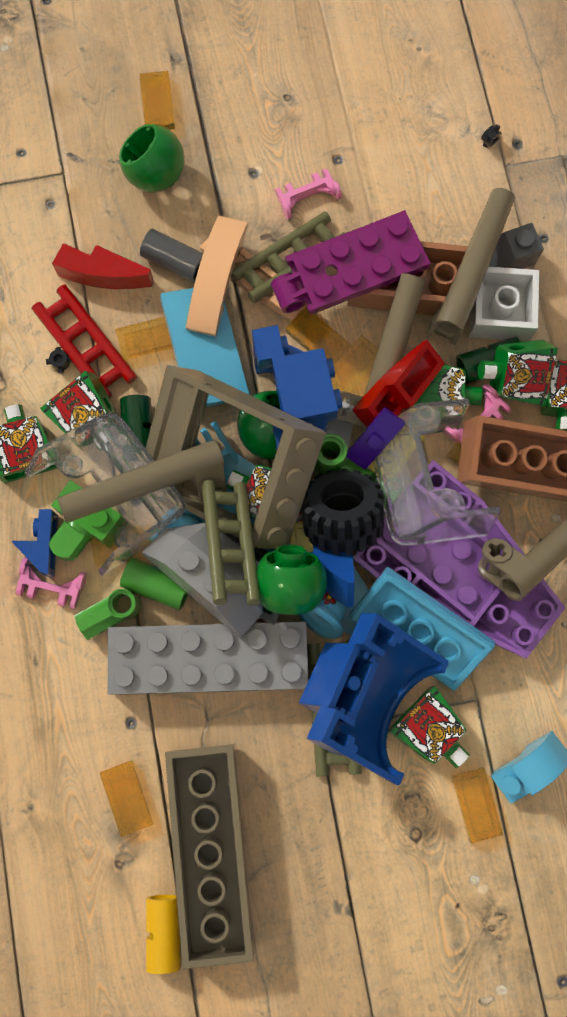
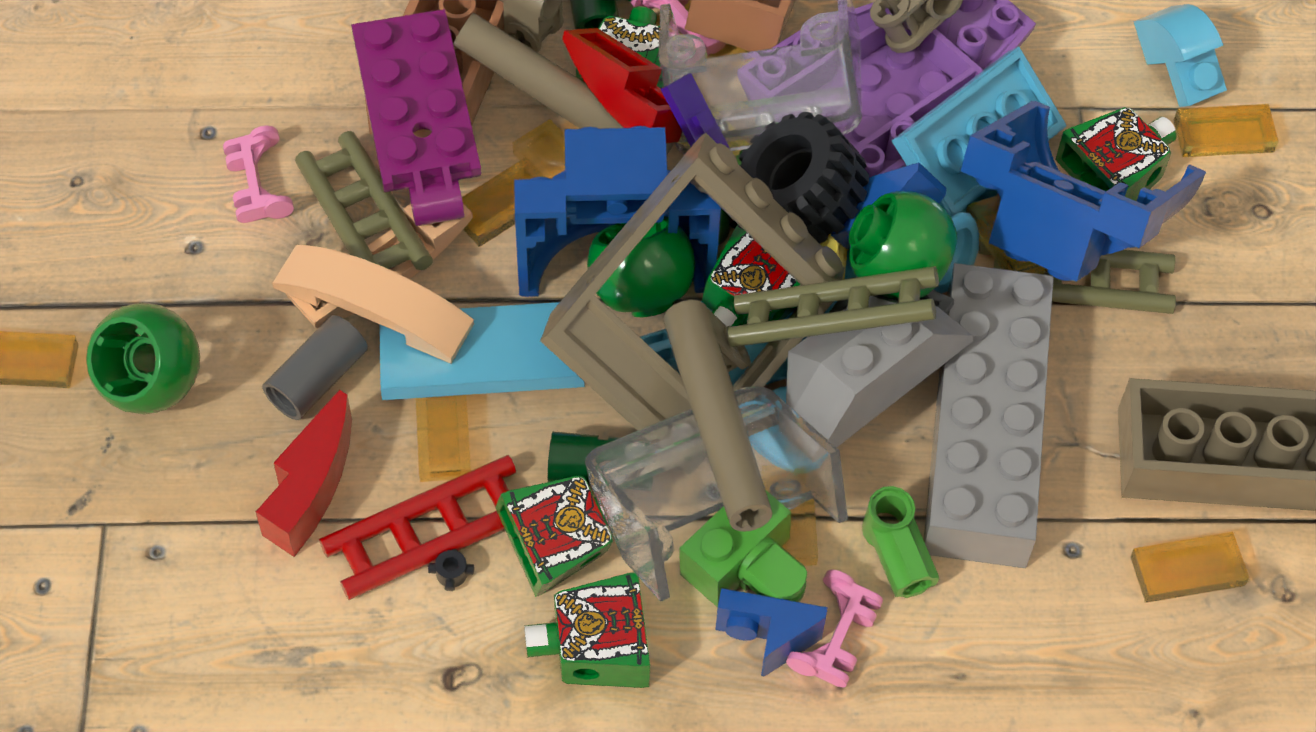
camera: 80 degrees left, 20 degrees down
(152, 584) = (868, 463): bright green pin -> none

